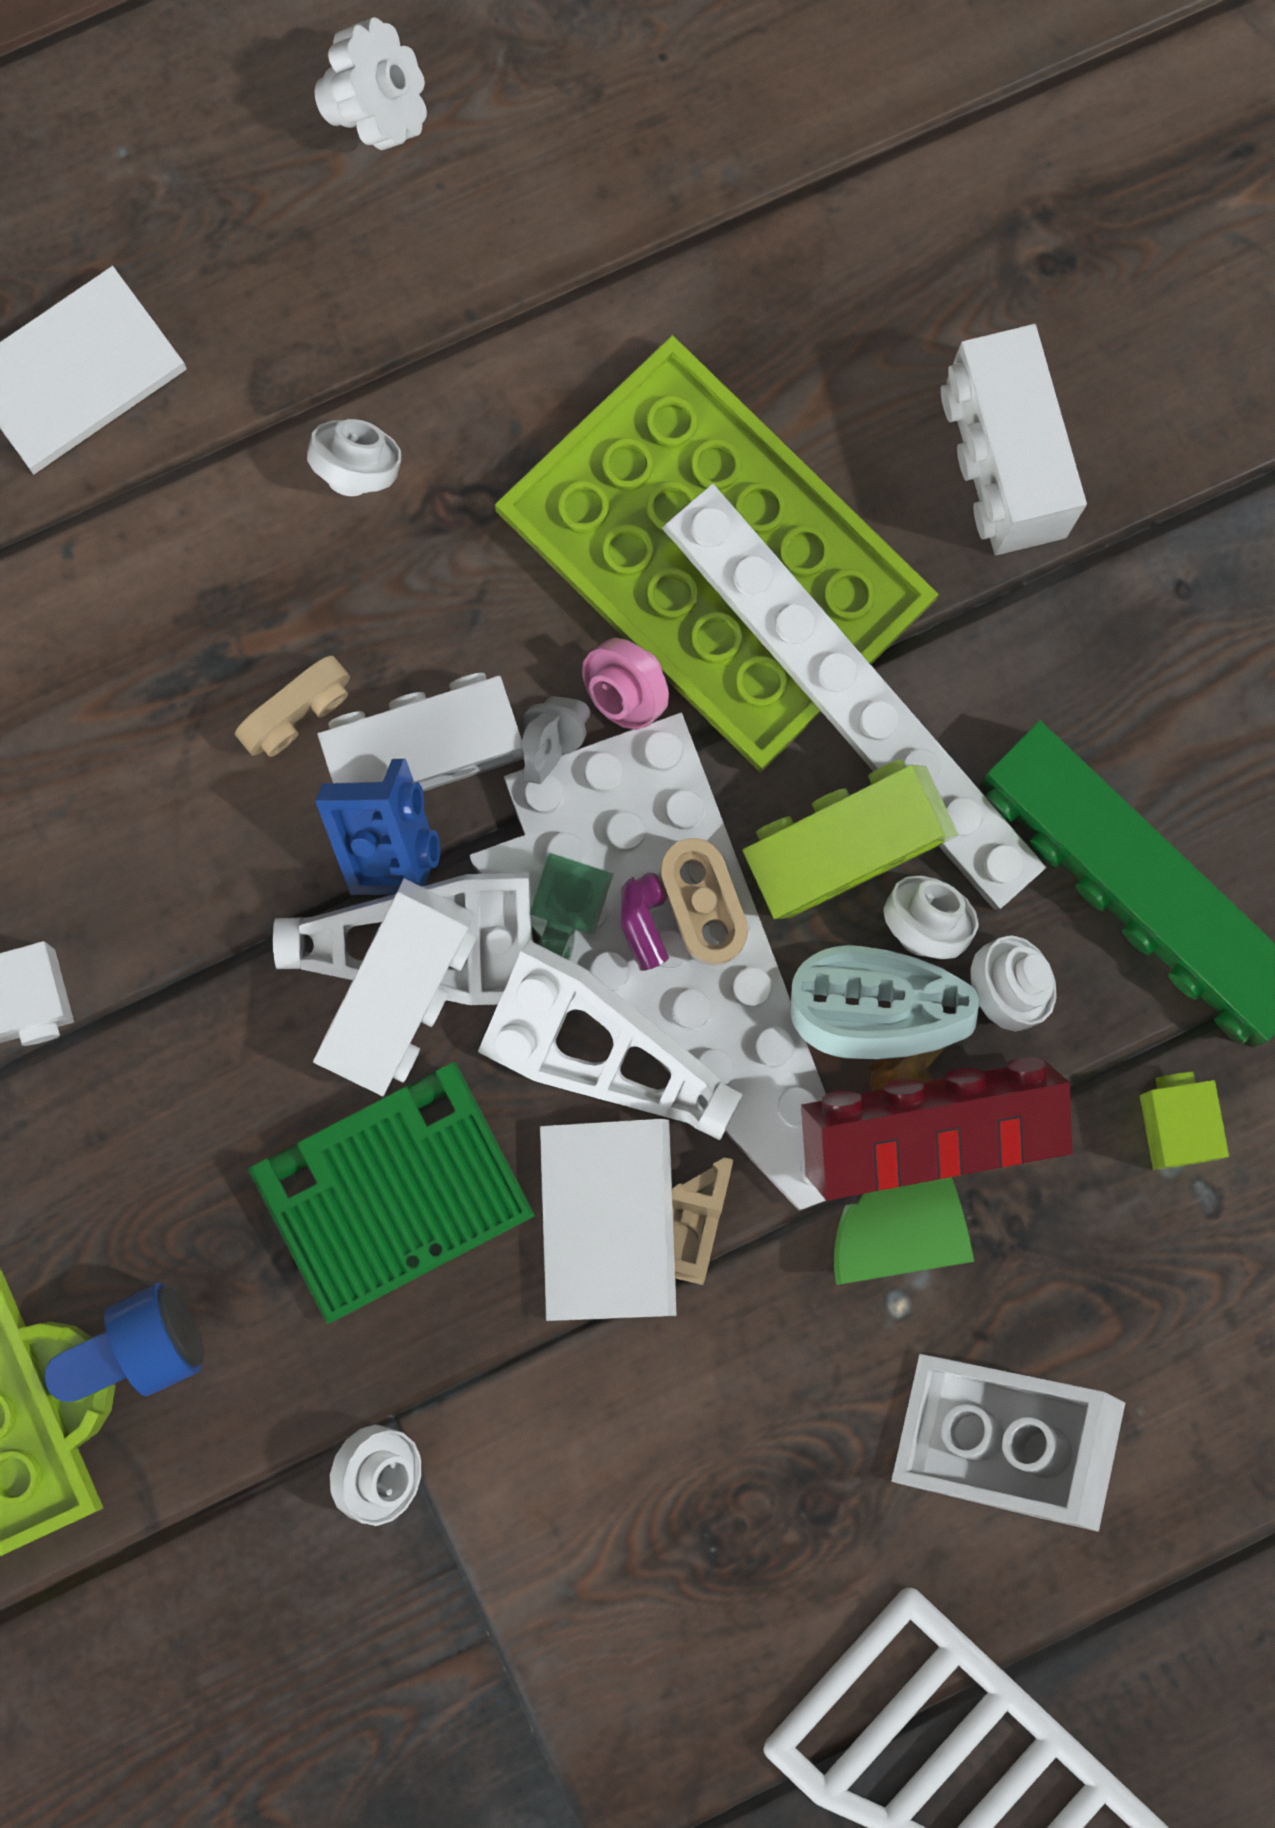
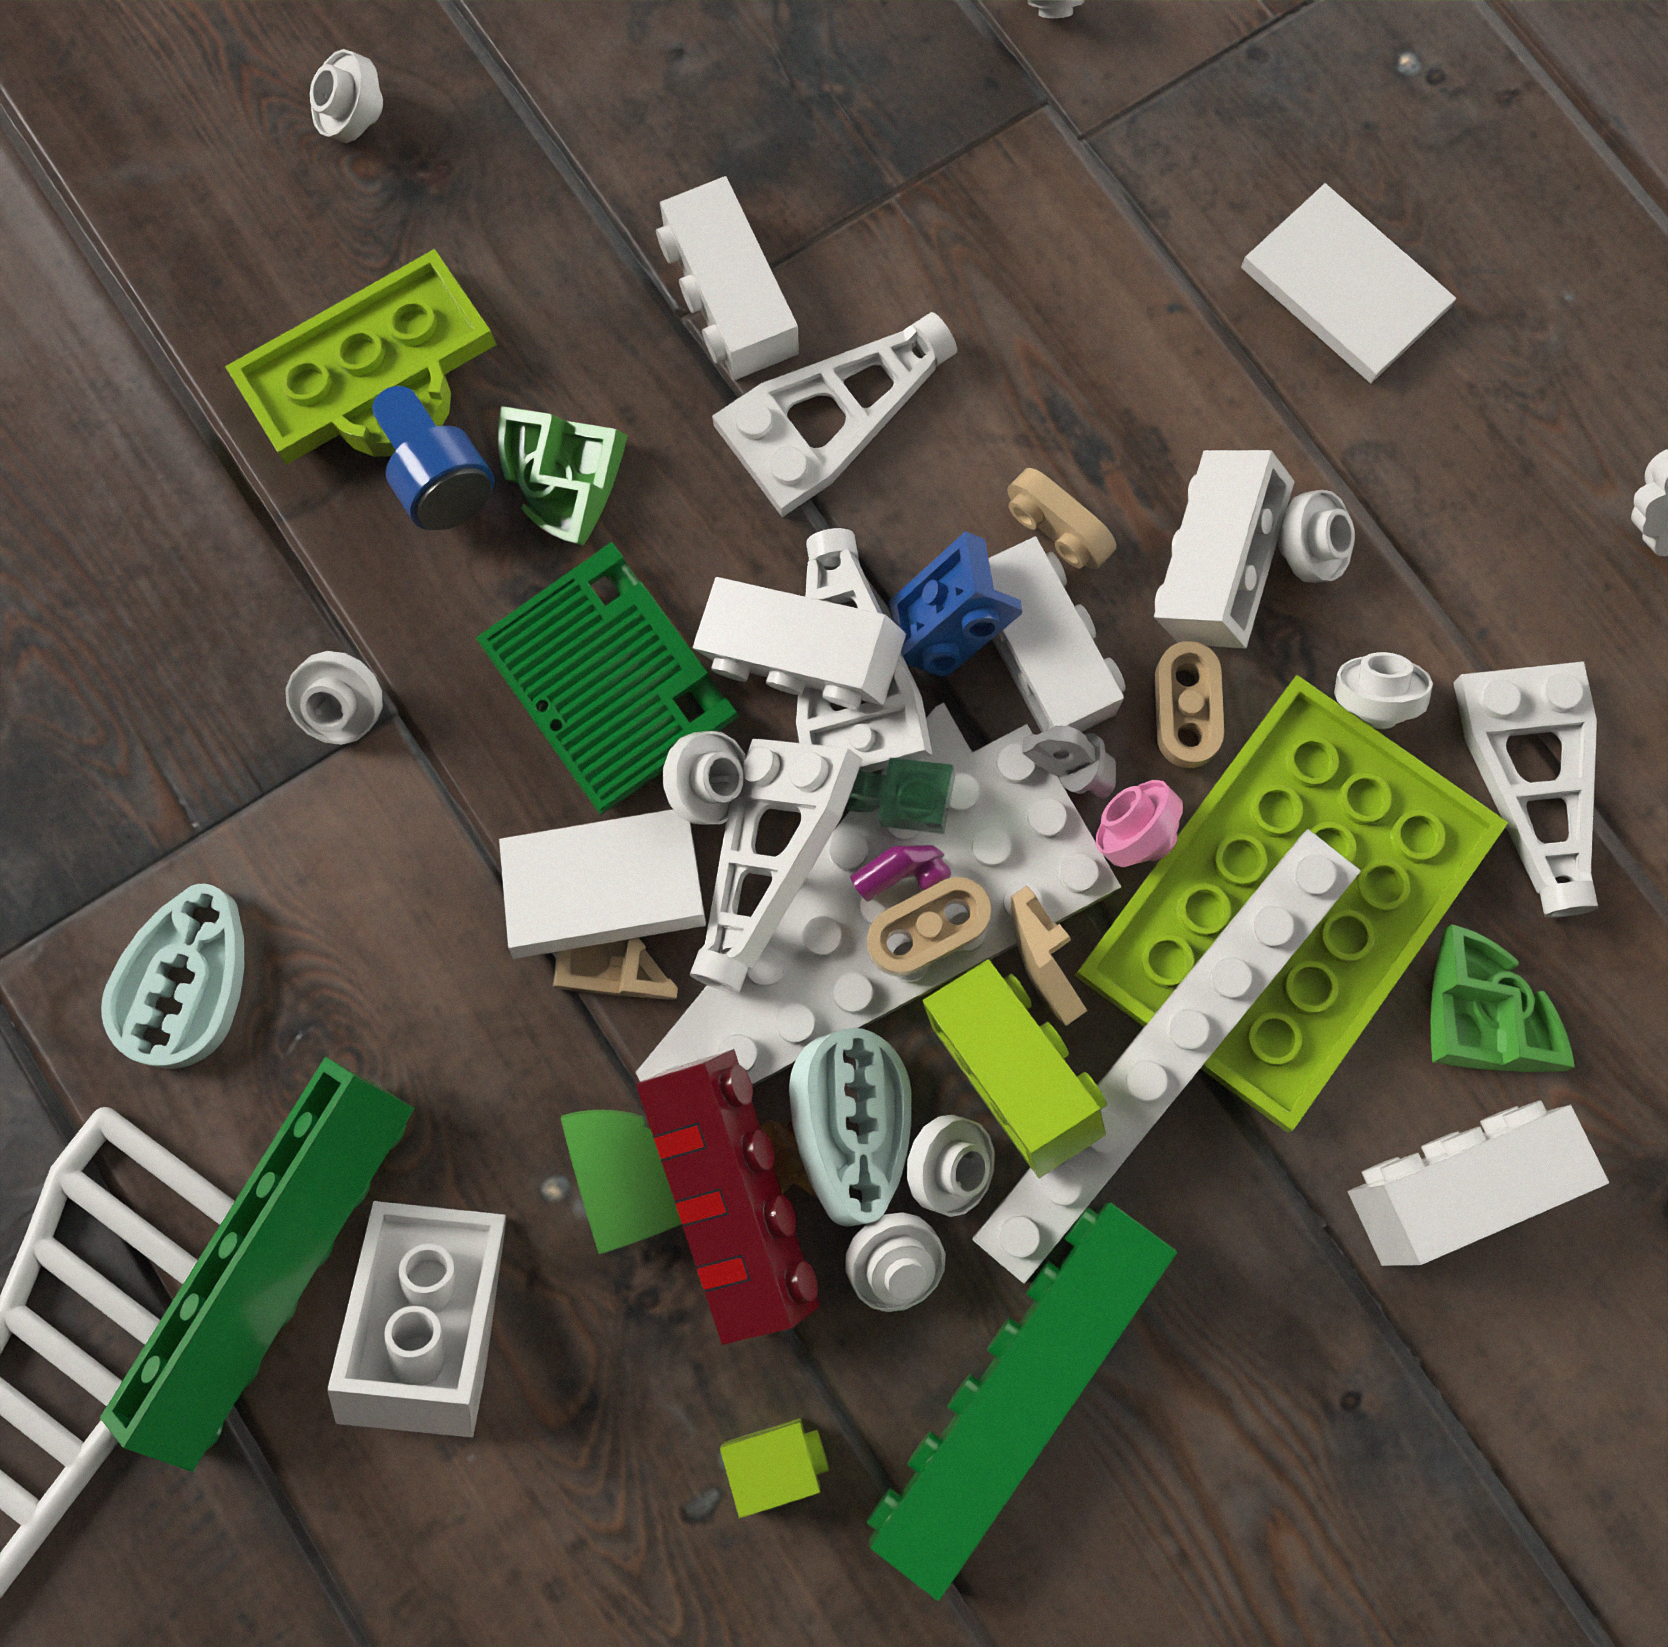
camera: 90 degrees right, 5 degrees down
(151, 1216) = (560, 469): none -> bright green brick
(163, 989) = (776, 452): none -> white plate
(353, 550) = (1224, 547): none -> white brick
(508, 610) = (1189, 708): none -> tan plate
(516, 1102) = (703, 776): none -> white plate
(521, 424) = (1383, 689): none -> white plate
(550, 293) = (1532, 703): none -> white plate
(638, 1700) = (142, 978): none -> light aqua piece
(732, 800) = (1036, 941): none -> tan slope
(849, 391) = (1489, 1014): none -> bright green brick
(941, 1593) = (256, 1267): none -> green brick

